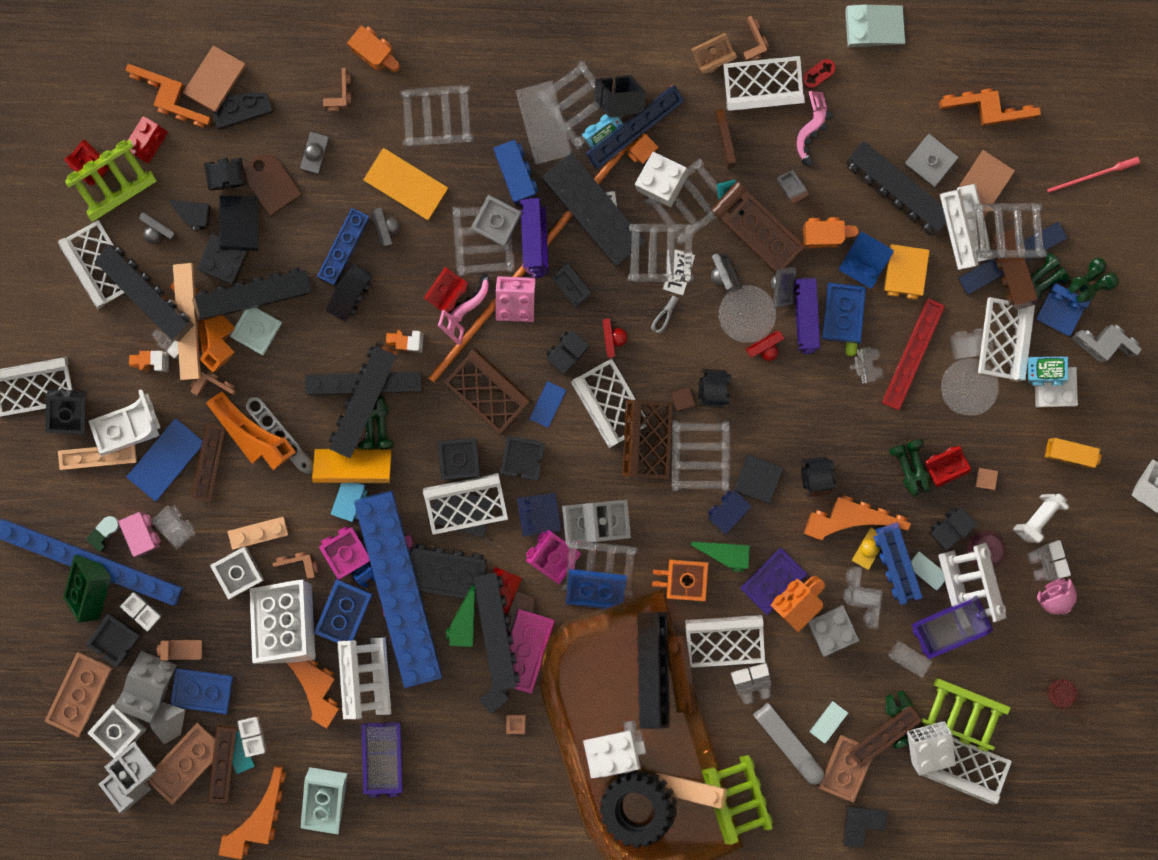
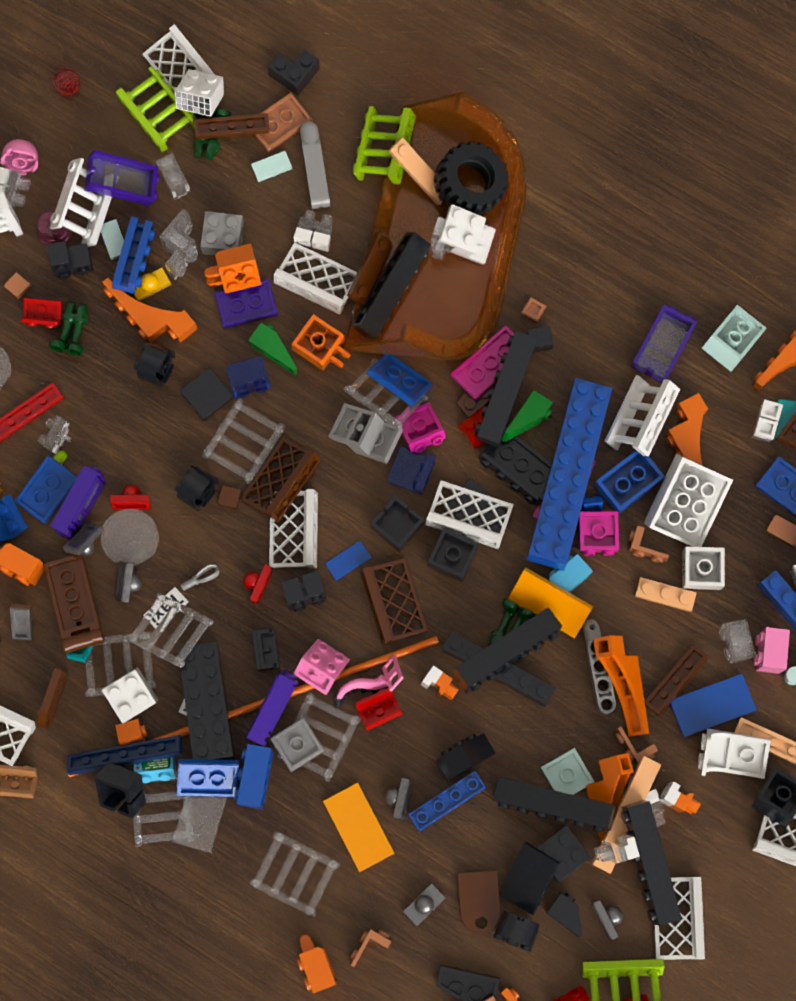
camera: 155 degrees left, 10 degrees down
(175, 283) = (618, 852): none -> clear hips
(553, 147) = (207, 777): none -> tile

